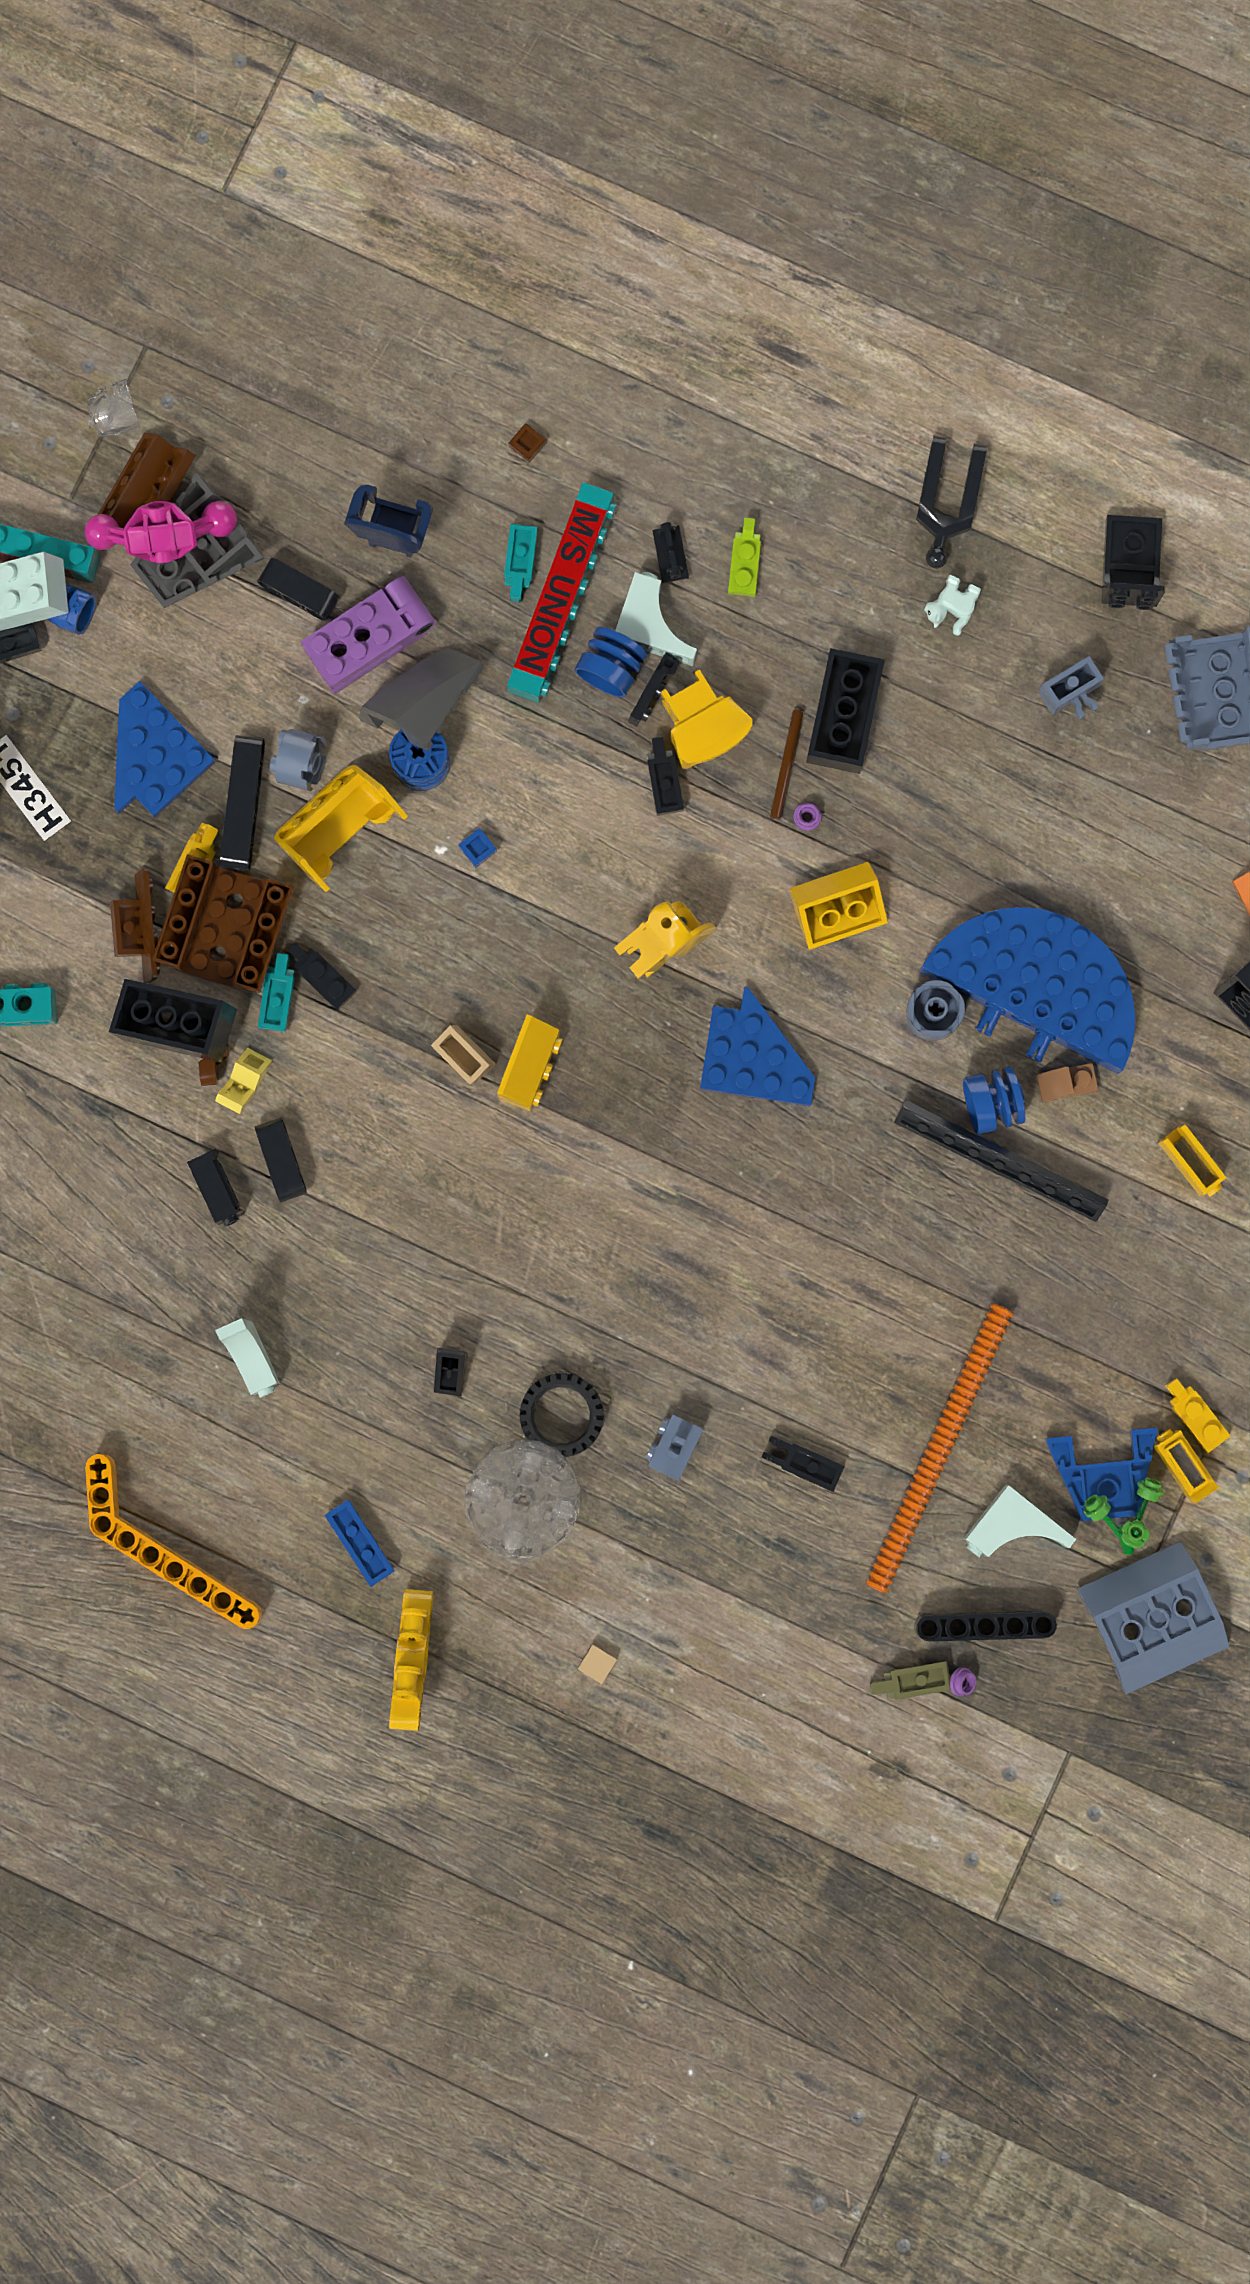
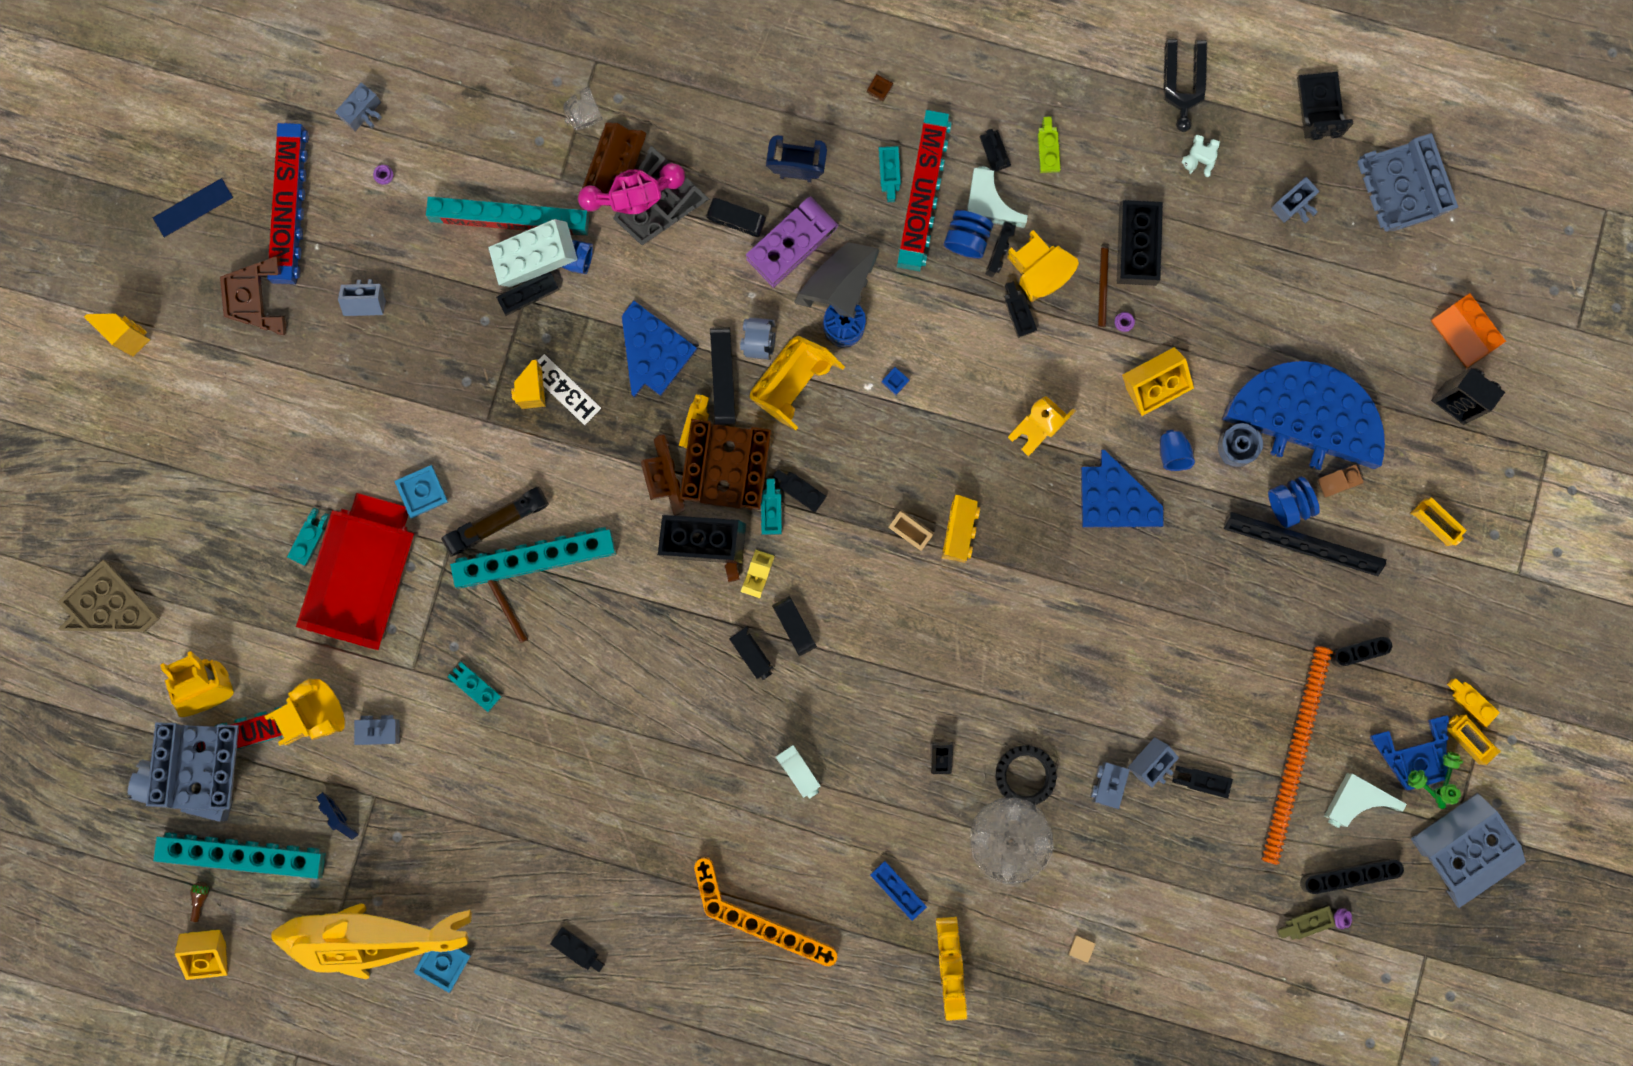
camera: 15 degrees left, 0 degrees up
(738, 1426) = (1153, 763): none -> sand blue brick
(841, 998) = (1173, 447): none -> blue helmet
(1066, 1324) = (1369, 646): none -> black beam

